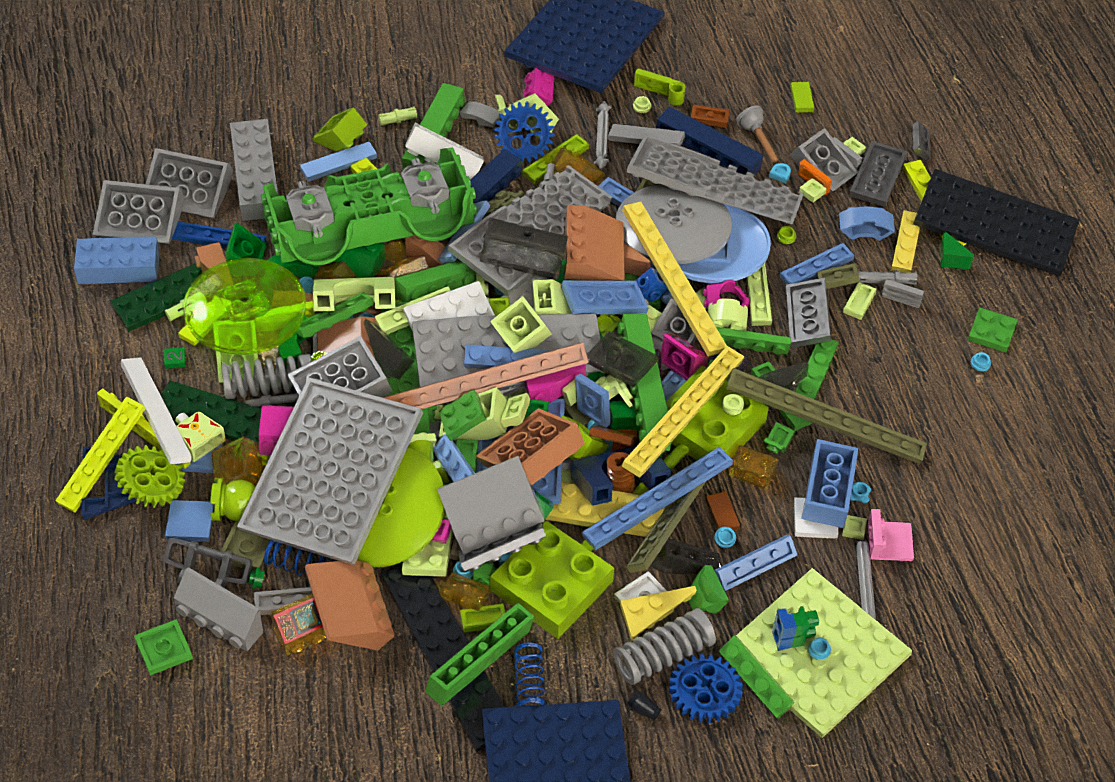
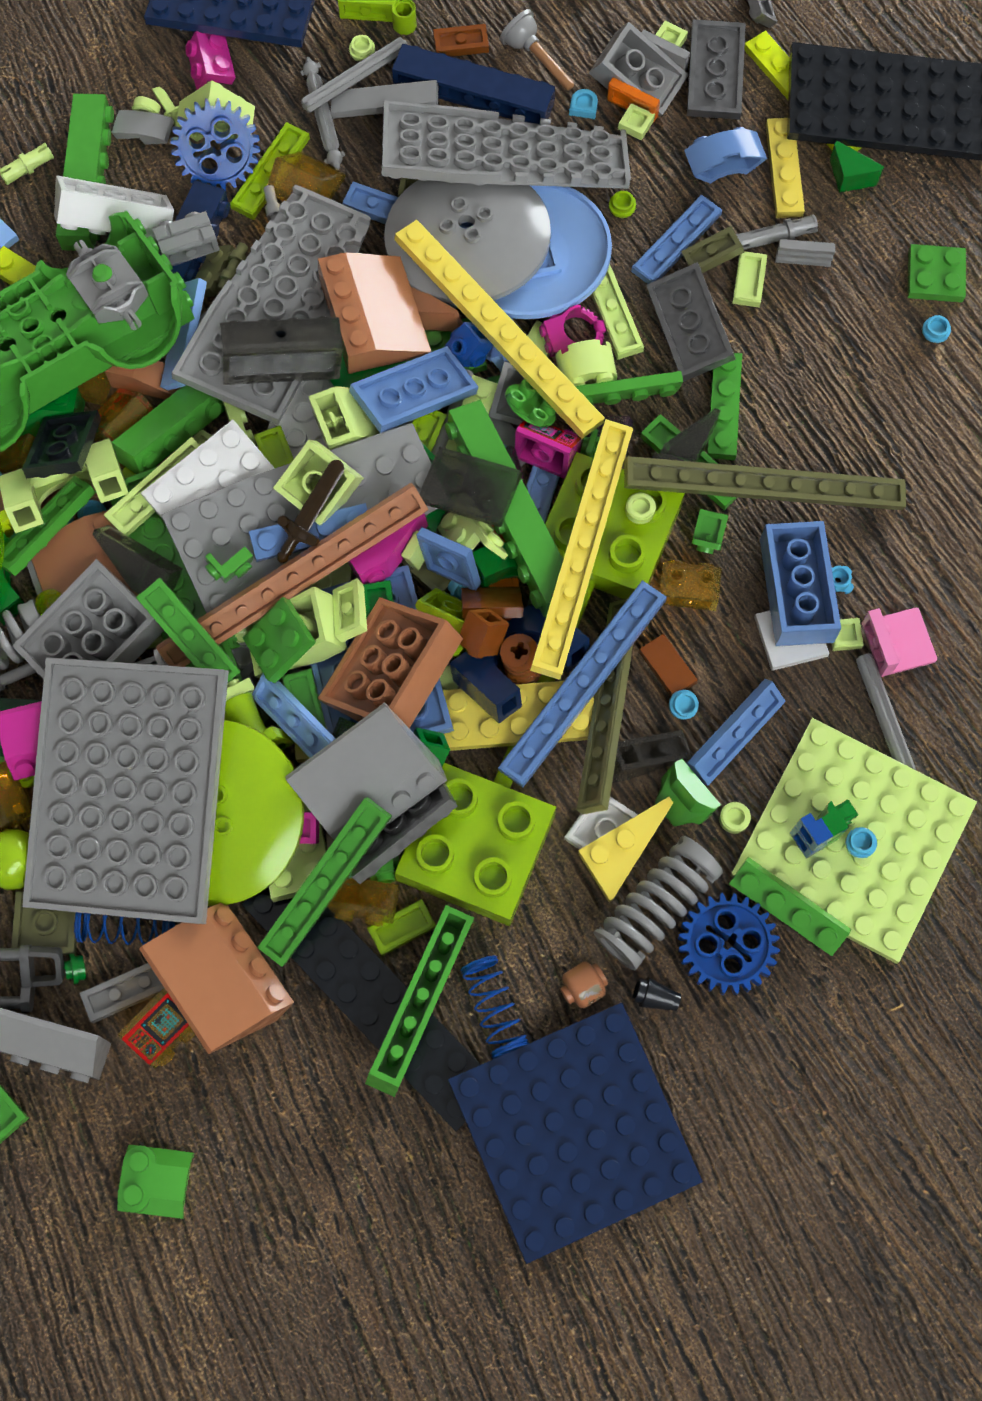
camera: 15 degrees left, 20 degrees up
(260, 719) = (154, 1181): none -> bright green slope
(362, 270) = (62, 444): none -> black plate
(402, 385) = (185, 629): none -> bright green plate
(441, 562) = (324, 881): none -> bright green plate
(447, 362) = (236, 565): none -> bright green bracket
(487, 100) = (146, 104): none -> yellowish green tile
(487, 177) = (186, 238): none -> light grey brick
(498, 351) = (299, 528): none -> dark brown sword
(596, 684) = (583, 984): none -> nougat head
(599, 444) = (483, 633): none -> dark orange brick
(627, 118) = (352, 75): none -> light grey axle
(679, 326) = (530, 405): none -> bright green dish
(737, 616) = (734, 817): none -> yellowish green tile

